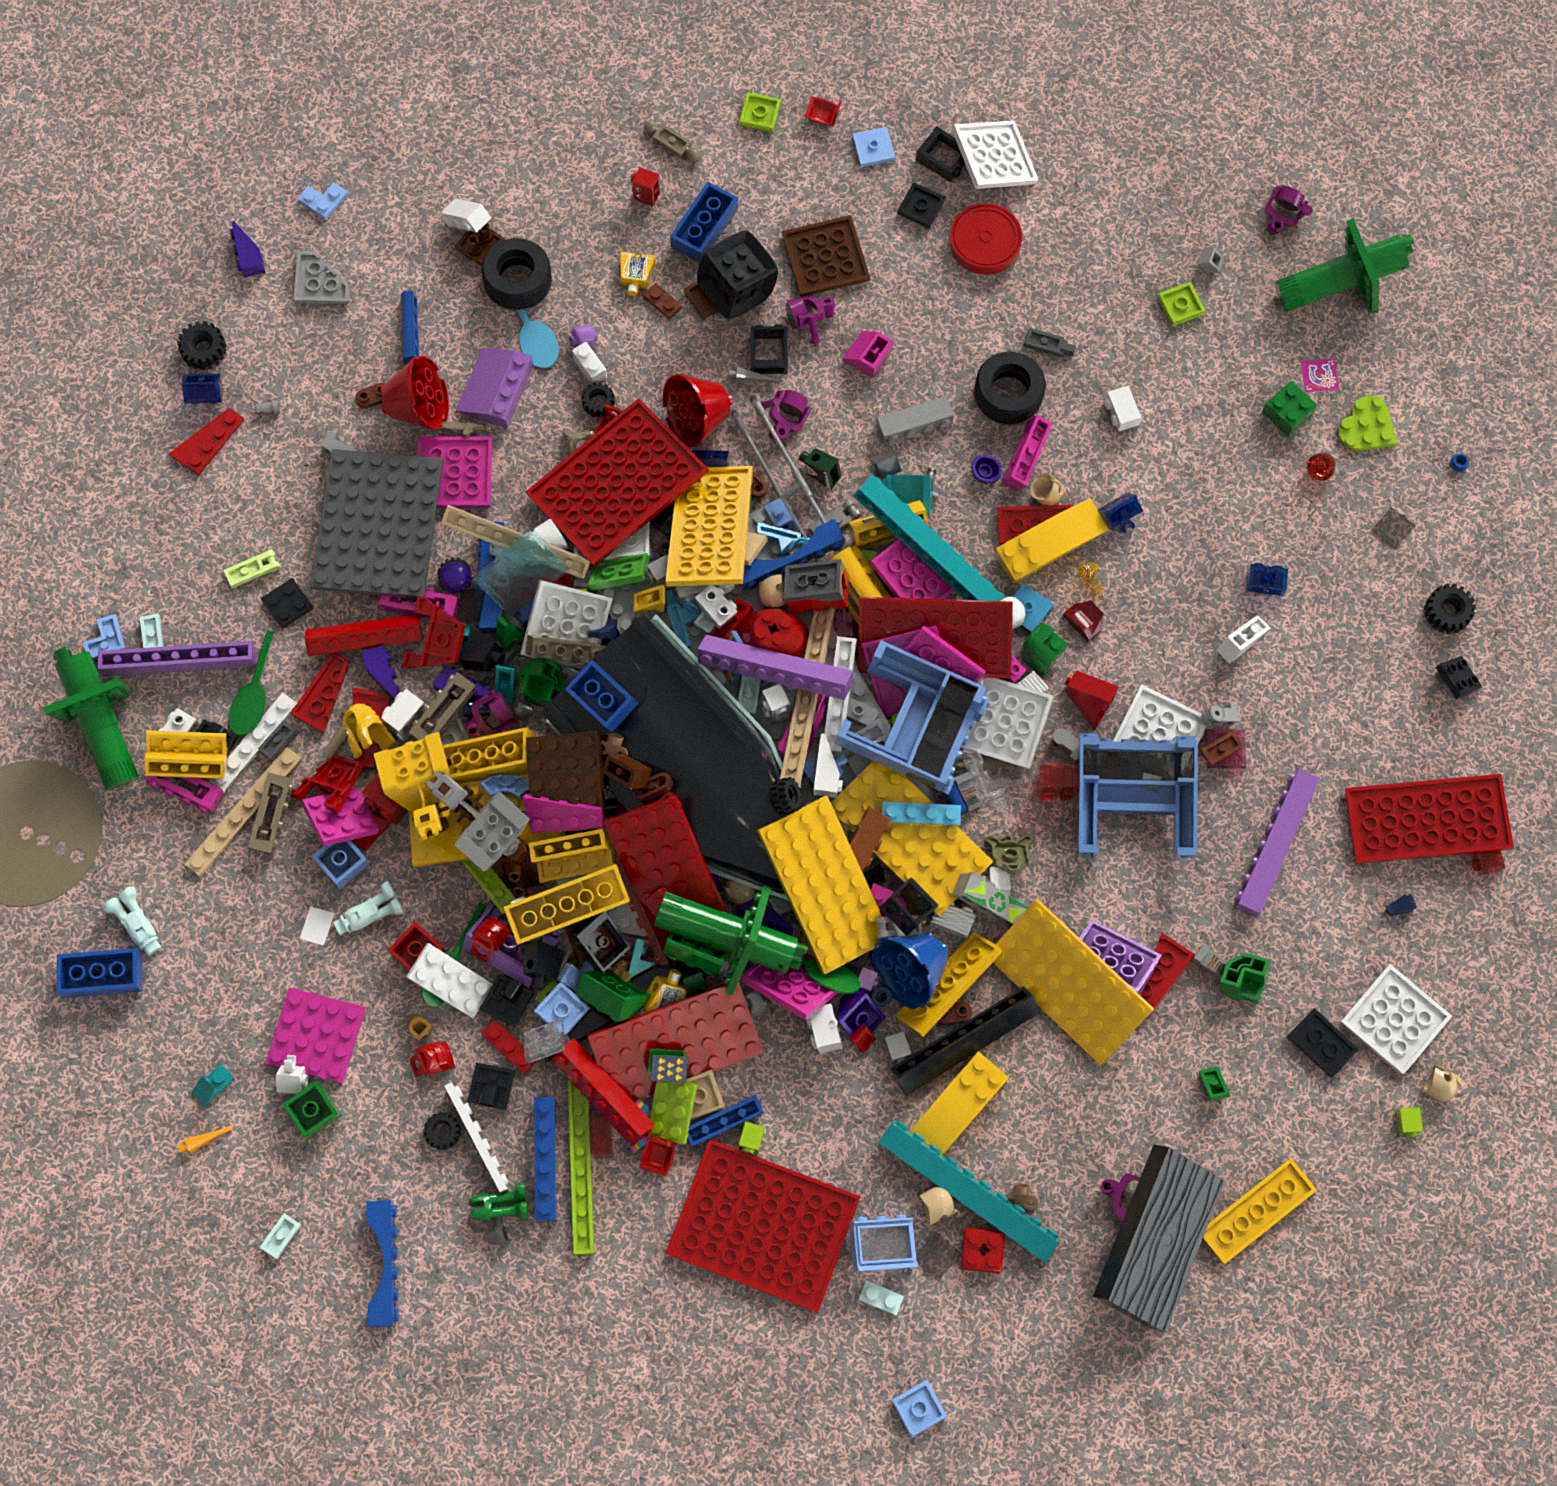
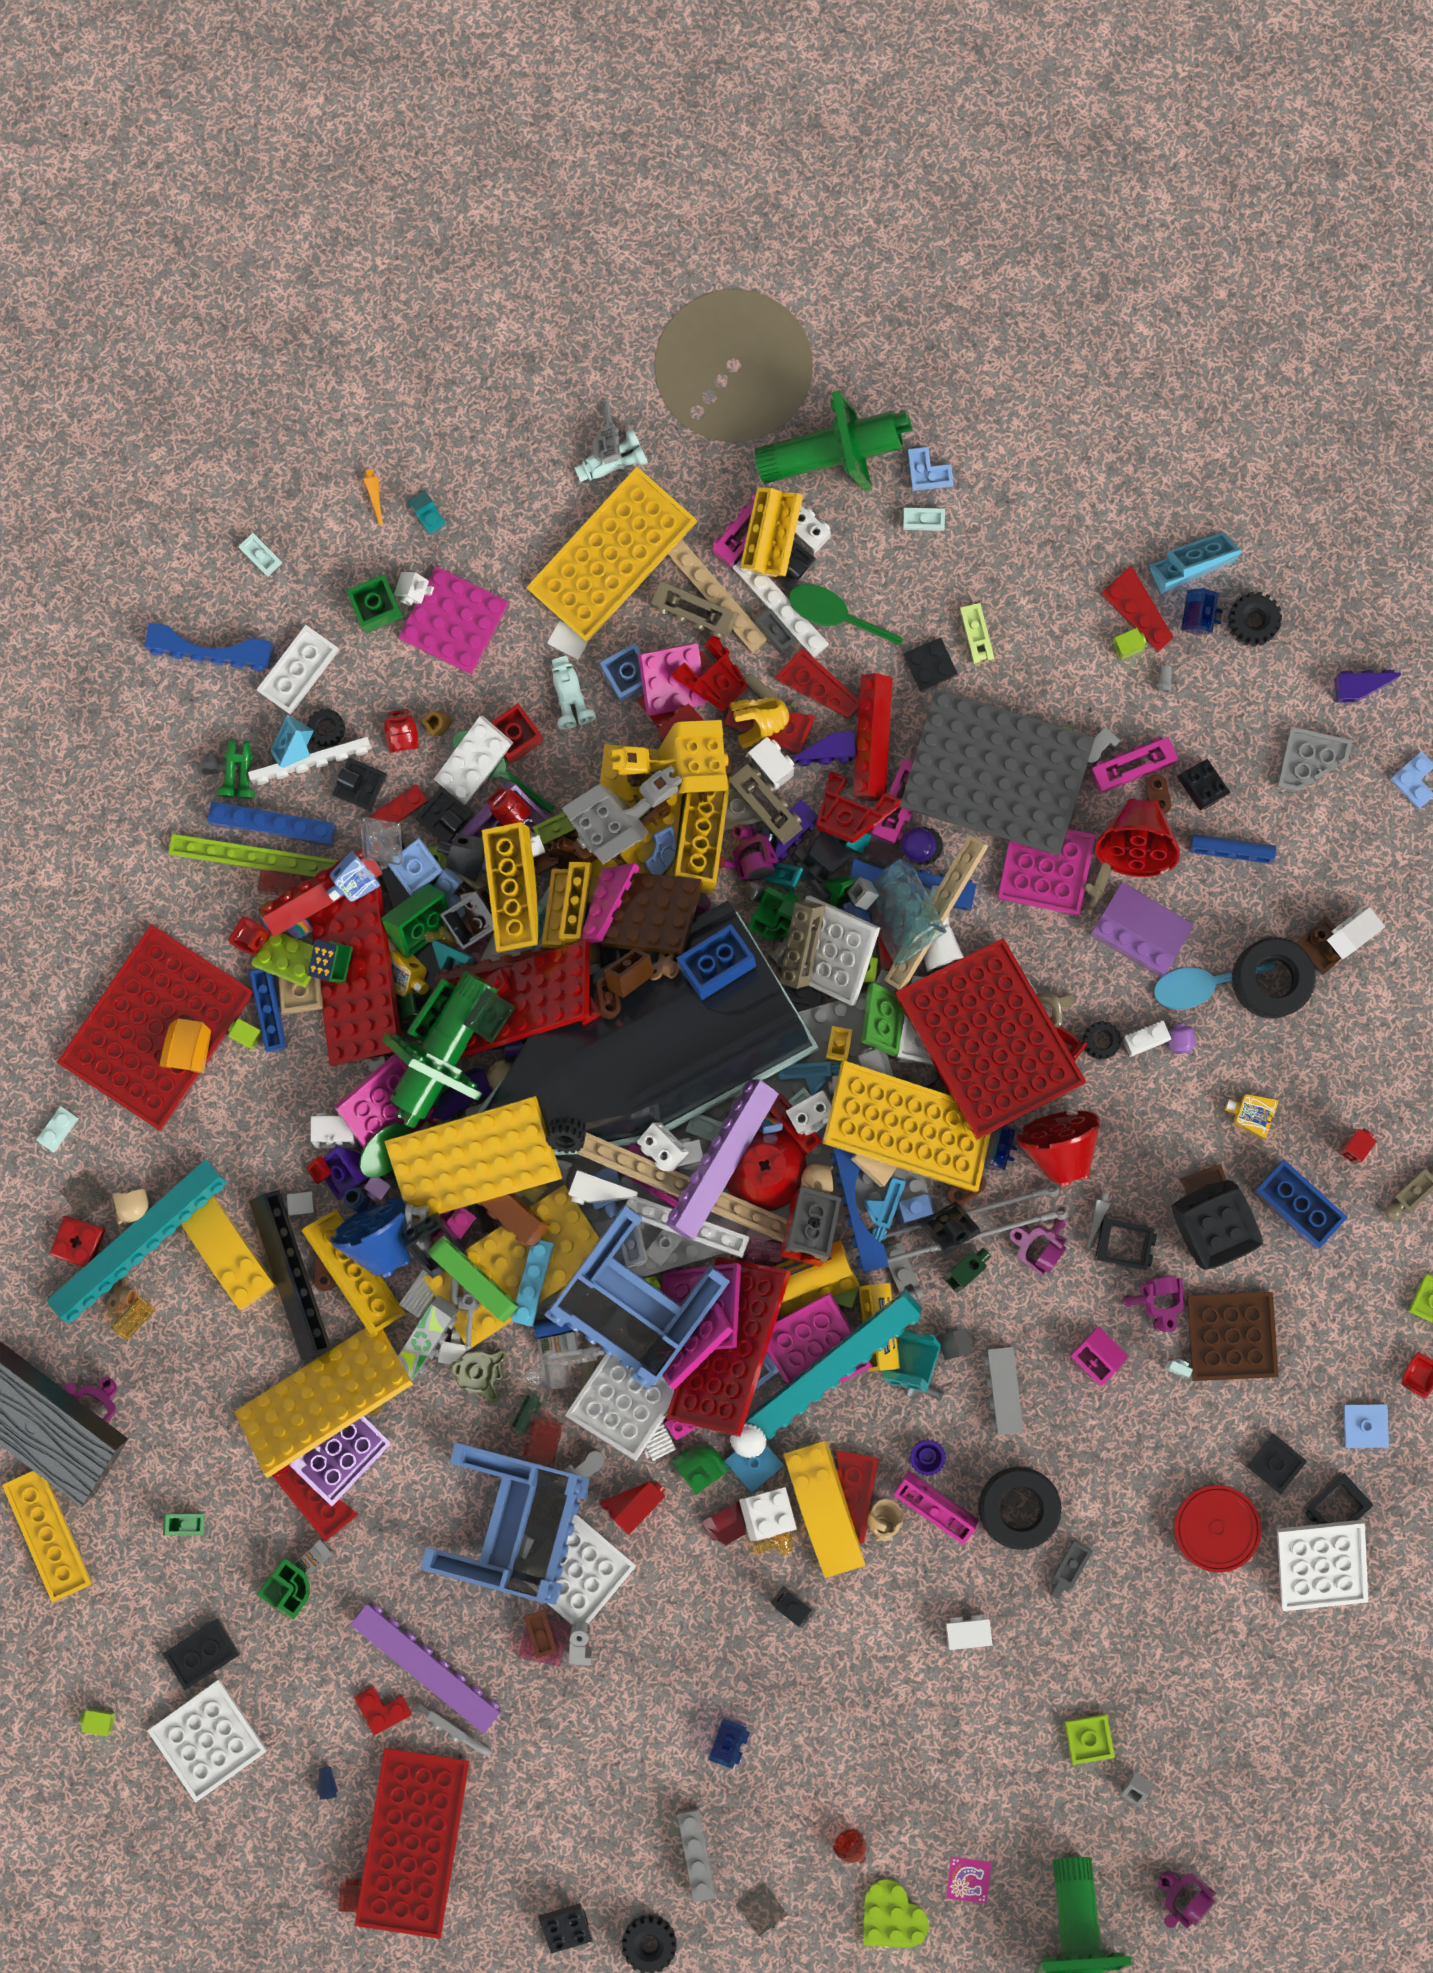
camera: 110 degrees right, 10 degrees up
(99, 973) = (563, 416): blue brick -> none
(112, 926) = (610, 439): none -> light grey piece
(156, 403) = (1194, 561): none -> medium azure slope
(177, 658) = (887, 540): medium lavender brick -> none
(228, 899) = (611, 554): none -> yellow plate
(241, 441) = (1129, 643): none -> lime brick
(333, 395) = (1165, 752): none -> dark pink brick
(357, 358) = (1203, 784): none -> black plate
(389, 1171) = (298, 669): none -> white plate
(463, 1157) = (291, 742): none -> medium azure slope
(512, 612) = (863, 893): none -> light grey plate
(586, 1059) = (352, 879): none -> medium blue torso
(605, 633) = (816, 993): dark blue piece -> none
(662, 301) = (1212, 1137): copper plate -> none
(691, 892) = (489, 1015): none -> clear green plate
(775, 1188) = (186, 1046): none -> light orange slope
(776, 718) = (662, 1147): none -> white brick
(788, 482) = (950, 1227): none -> black plate
(862, 287) = (1178, 1367): none -> light aqua plate
(882, 1244) = (104, 1141): window -> none
(931, 861) = (473, 1279): none -> bright green beam
(950, 866) = (466, 1302): none -> light grey piece
(1036, 803) = (522, 1420): none -> clear green plate
(1039, 1178) = (133, 1318): none -> clear yellow plate
(1068, 584) = (767, 1514): none -> white brick
(1120, 511) = (843, 1596): clear blue brick -> none
(1141, 547) = (792, 1607): none -> black torso
(1242, 639) = (665, 1696): white slope -> none
(1289, 408) = (930, 1829): green brick -> none
(1325, 804) = (454, 1731): none -> light grey plate
(1329, 874) = (379, 1715): none -> red plate
(1365, 585) = (696, 1854): none -> light grey brick
(1442, 1084) = (126, 1768): tan helmet -> none

